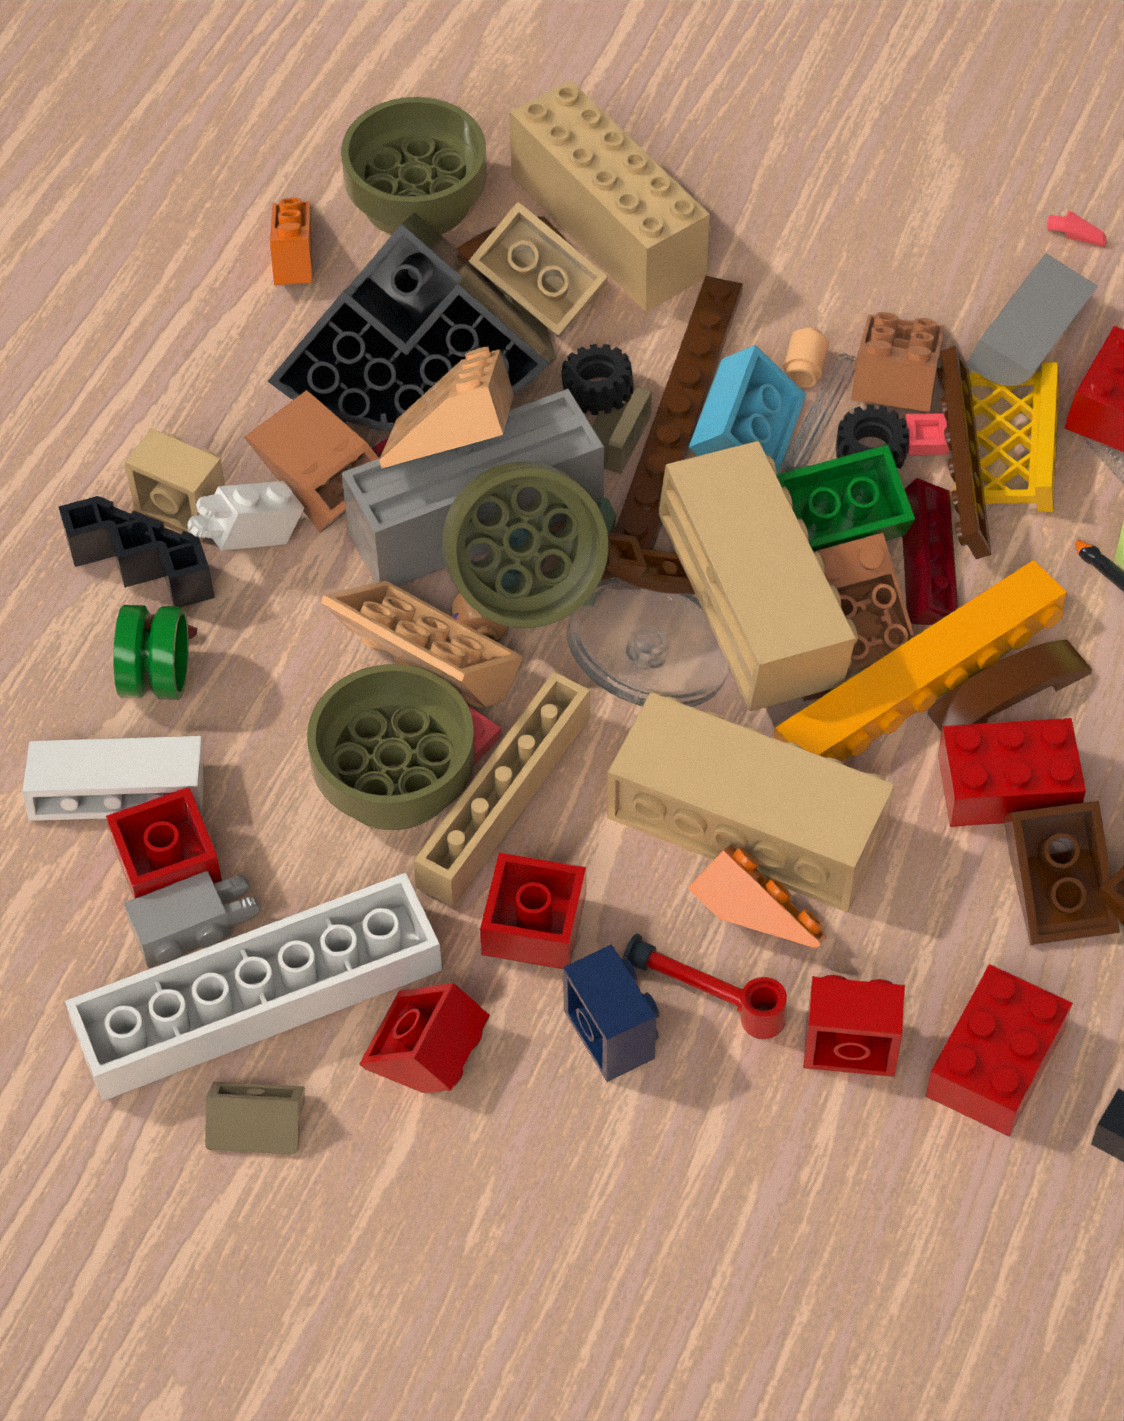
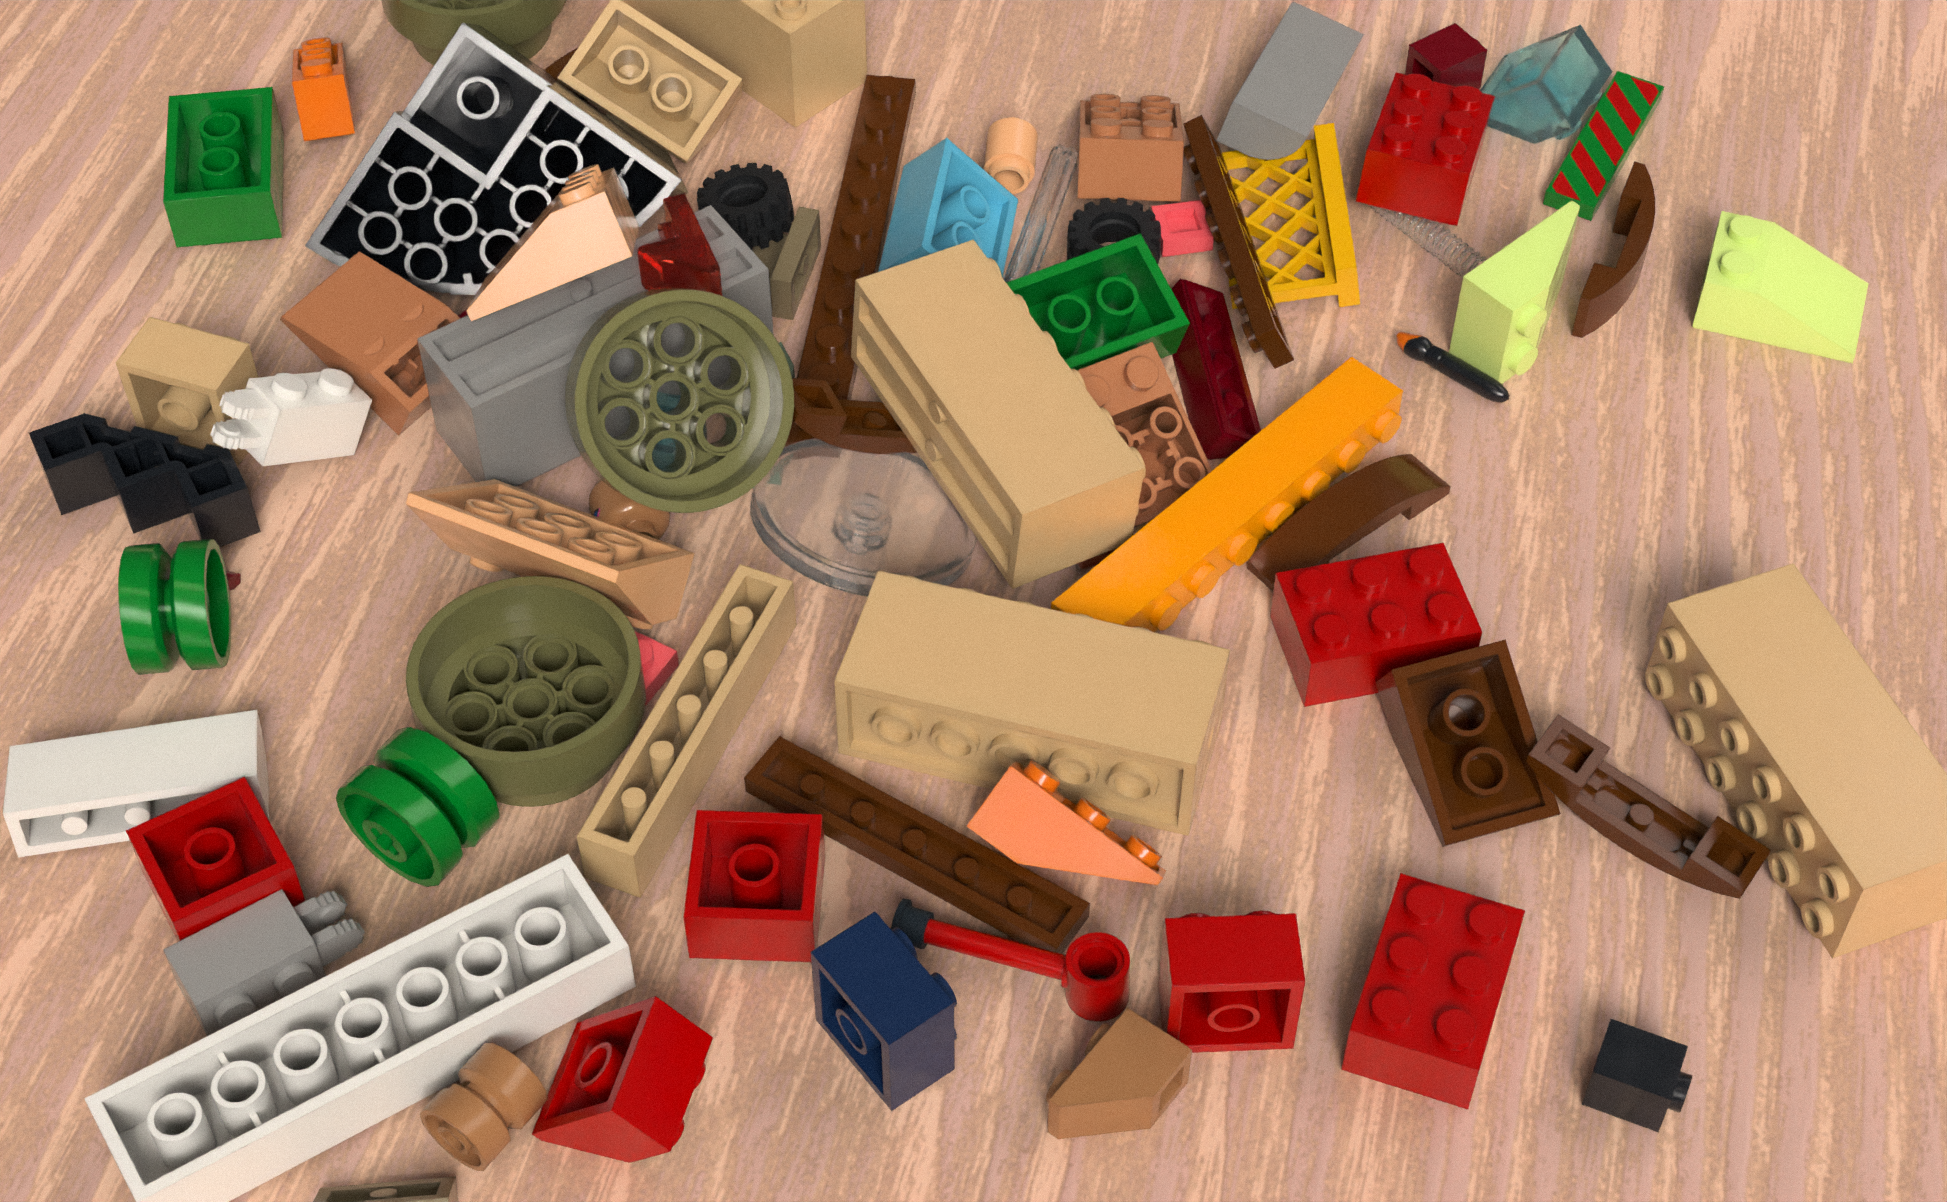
camera: 10 degrees left, 5 degrees down
(213, 302) = (224, 167): none -> green brick
(306, 823) = (418, 806): none -> green wheel
(335, 1036) = (475, 1116): none -> medium nougat wheel
(540, 436) = (681, 255): none -> clear red slope
(652, 897) = (919, 848): none -> reddish brown plate
(768, 1083) = (1121, 1083): none -> medium nougat slope

